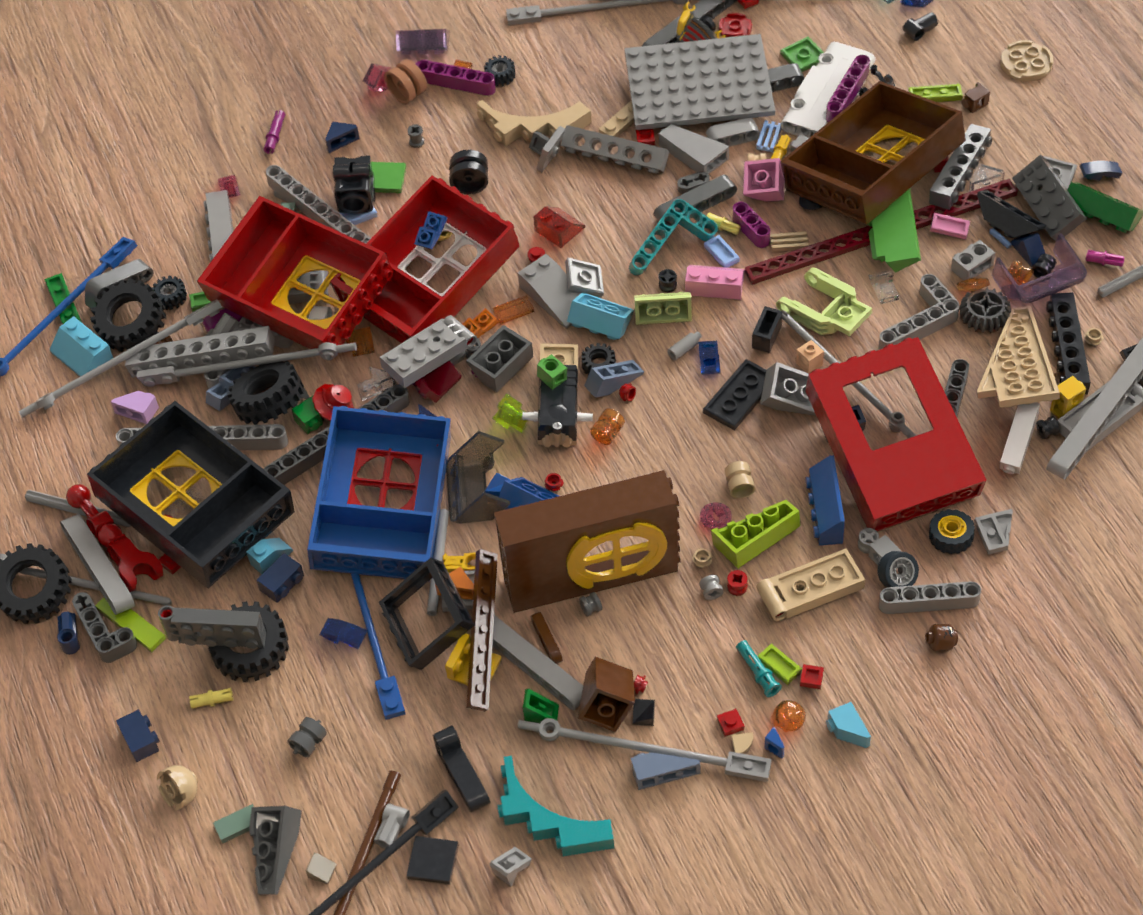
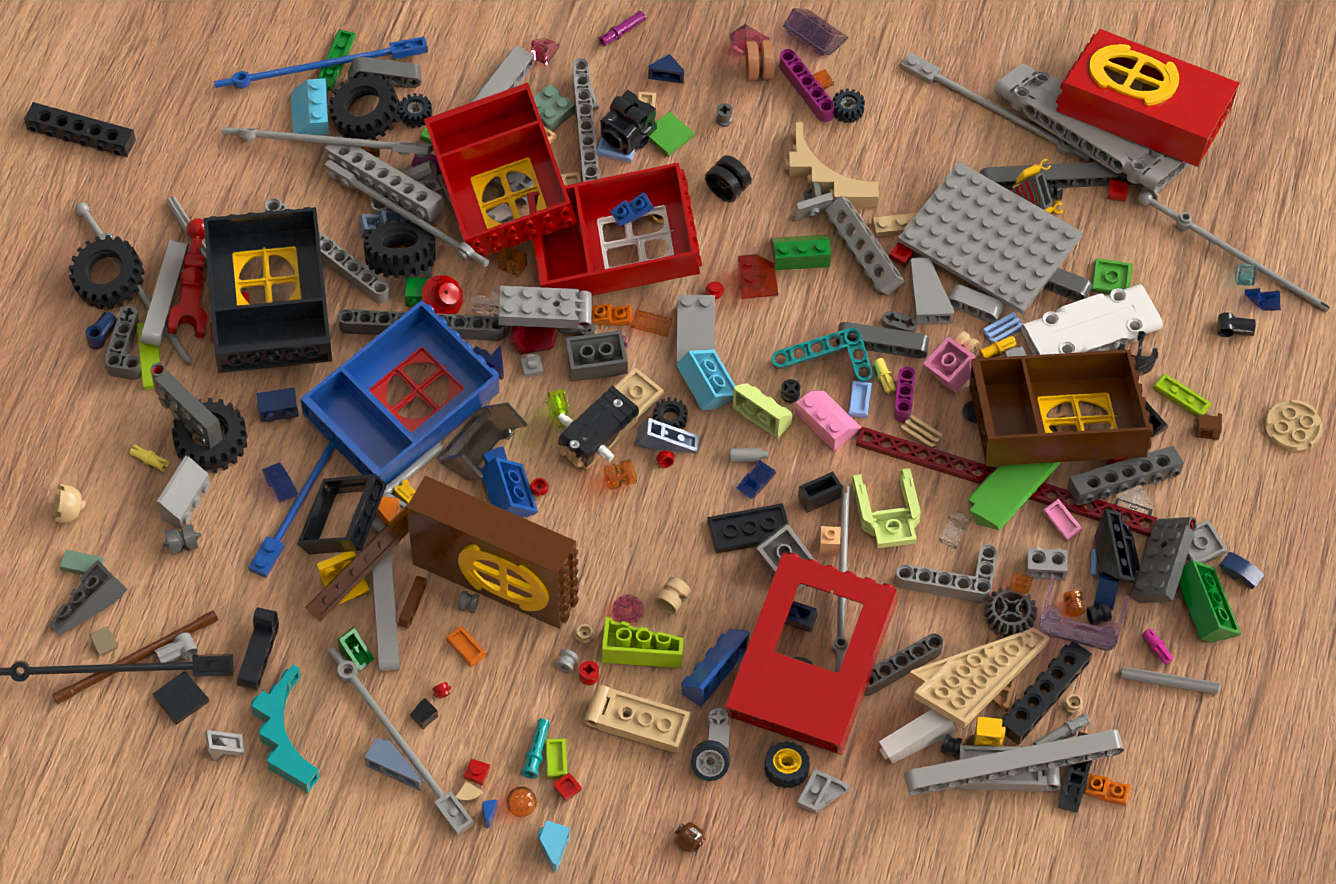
camera: 35 degrees right, 5 degrees up
(136, 406) = (306, 187): lavender slope -> none
(138, 736) = (76, 445): dark blue brick -> none
(266, 552) = (288, 377): medium azure slope -> none
(274, 700) = (183, 493): none -> light grey slope
(454, 403) = (532, 366): none -> light grey tile
(551, 371) = (609, 404): bright green brick -> none
(572, 185) = (801, 252): none -> green slope
(584, 277) = (728, 338): light grey tile -> none
(606, 694) = (407, 677): reddish brown slope -> none
(621, 638) = (466, 646): none -> orange tile
(735, 25) = (1082, 208): red tile -> none
(848, 87) = (1107, 331): magenta beam -> none
(938, 592) = (718, 809): light grey beam -> none
(1110, 355) = (1068, 729): none -> light grey pin

